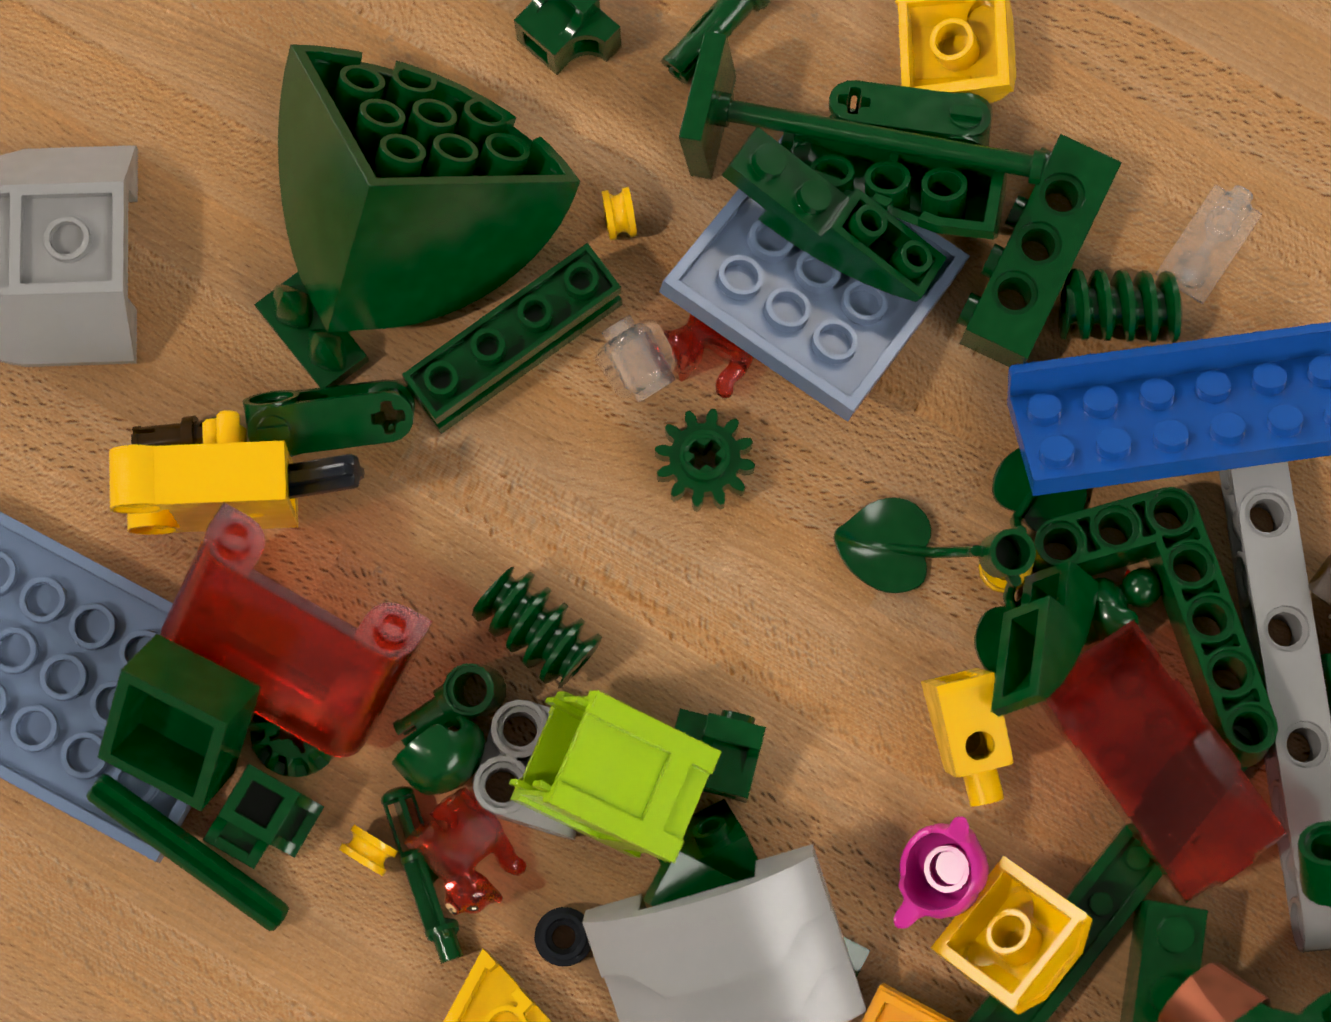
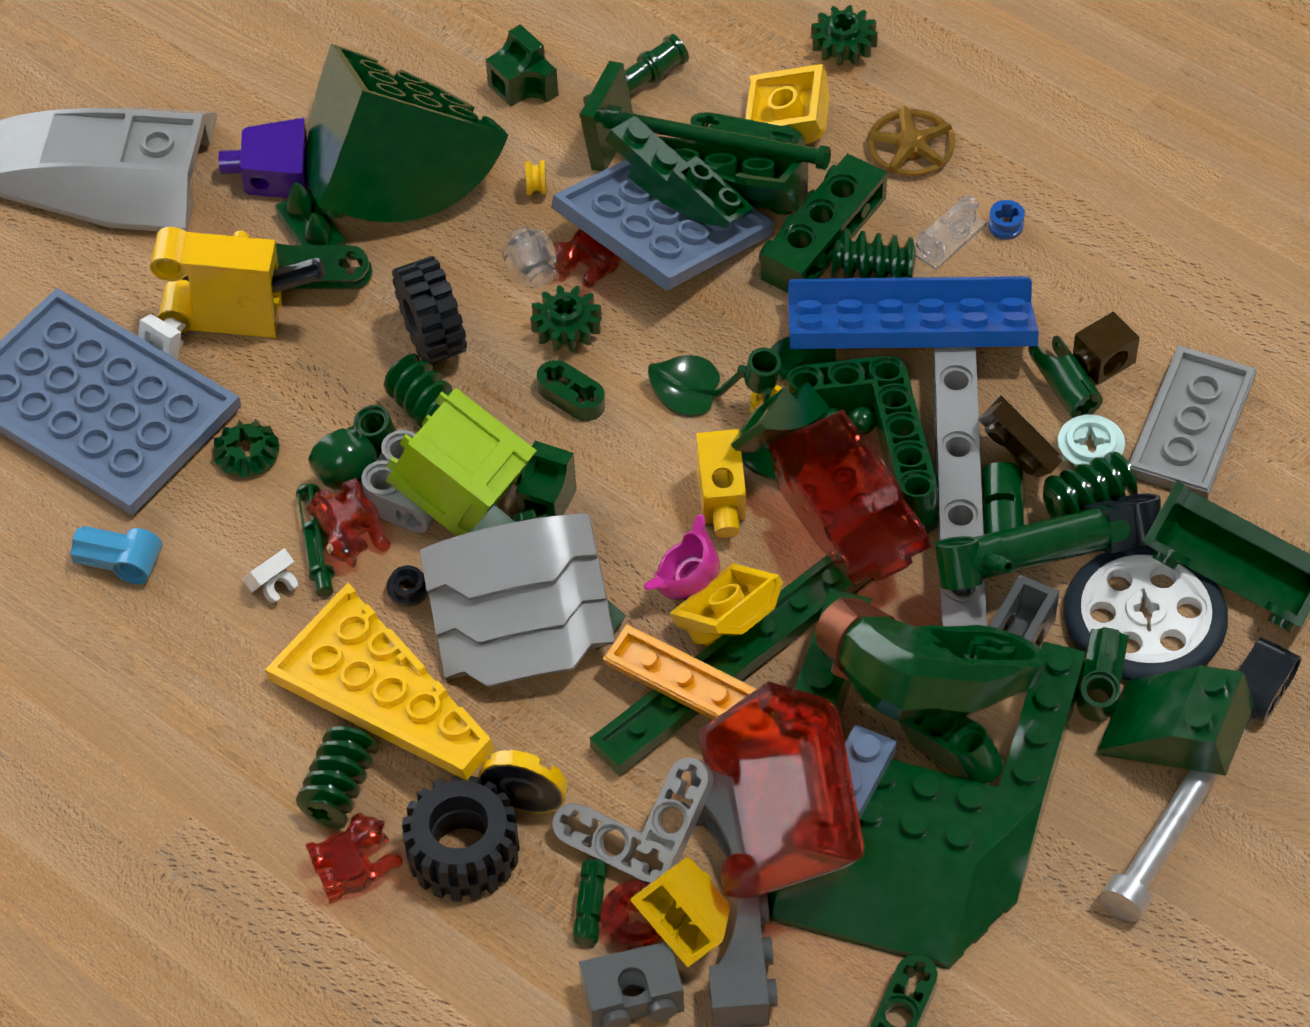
camera: 10 degrees right, 25 degrees down
(144, 563) = (162, 334): none -> white tile
(165, 937) = (127, 555): none -> dark azure piece
(178, 721) = (166, 403): dark green piece -> none
(187, 852) = (154, 499): dark green axle -> none
(233, 225) = (269, 158): none -> dark purple torso
(260, 815) = (210, 485): dark green brick -> none
(312, 667) = (254, 374): clear red windscreen -> none
(368, 850) = (280, 518): yellow bush -> none
(371, 944) = (269, 573): none -> white tile
(514, 338) = (449, 233): dark green brick -> none
(517, 492) = (429, 310): none -> black tyre
(736, 564) = (567, 394): none -> dark green beam
(1137, 79) = (910, 141): none -> pearl gold wheel
(1297, 189) = (1008, 209): none -> blue bush

